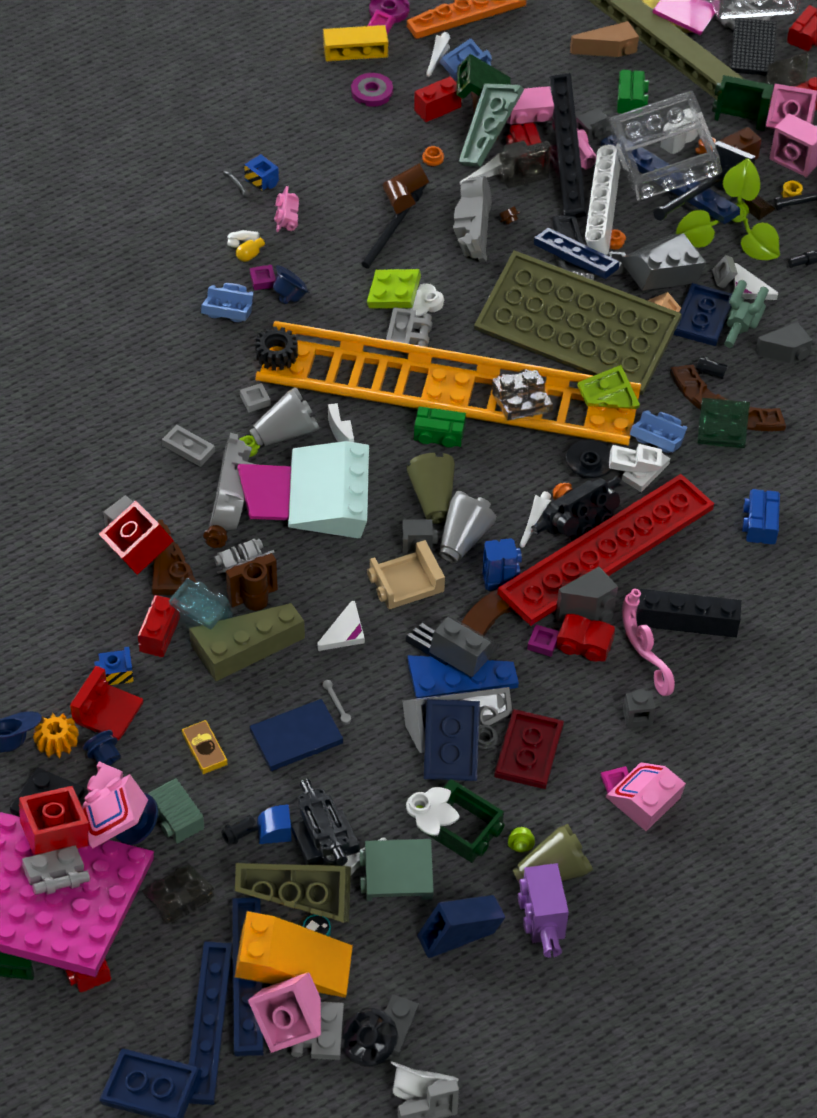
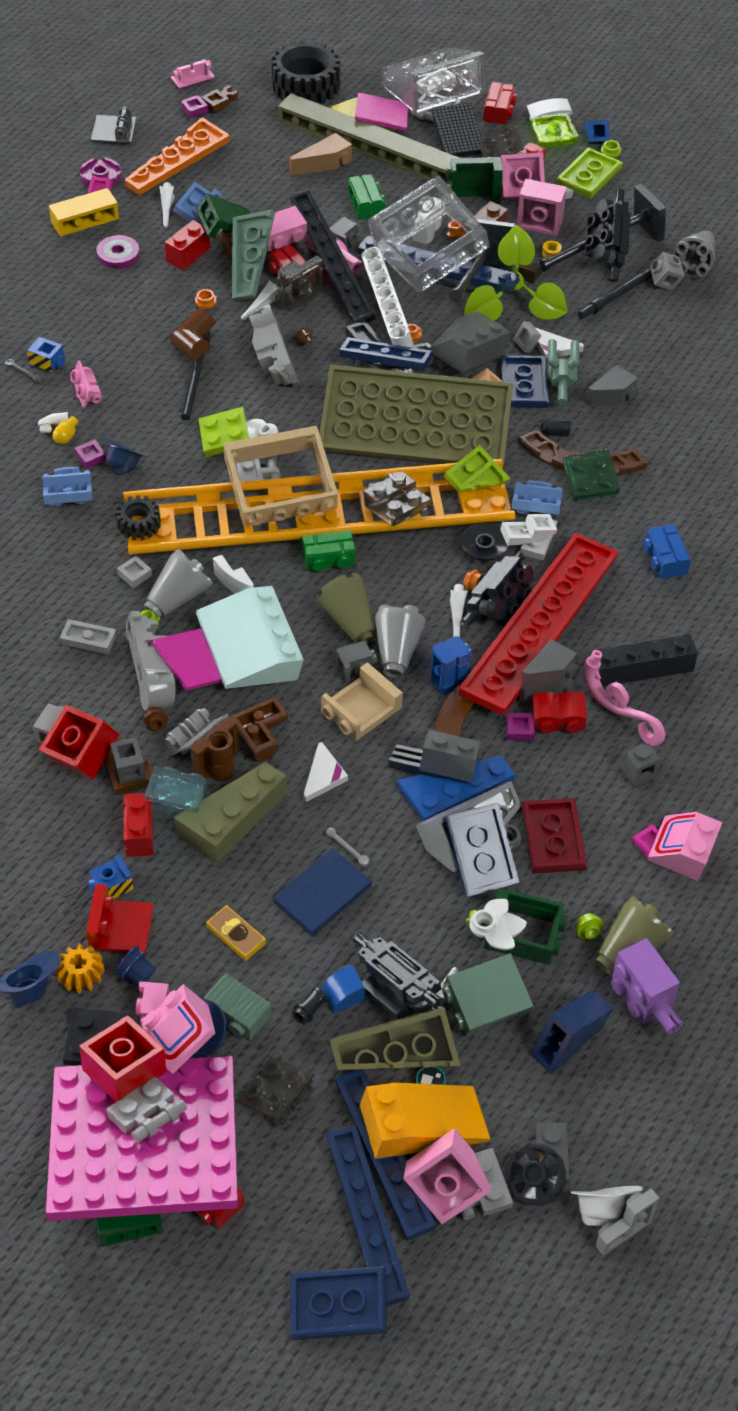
camera: 20 degrees left, 0 degrees up
(171, 566) = (128, 760): none -> dark grey brick
(300, 566) = (254, 726): none -> reddish brown brick
(425, 314) = (275, 445): none -> tan window

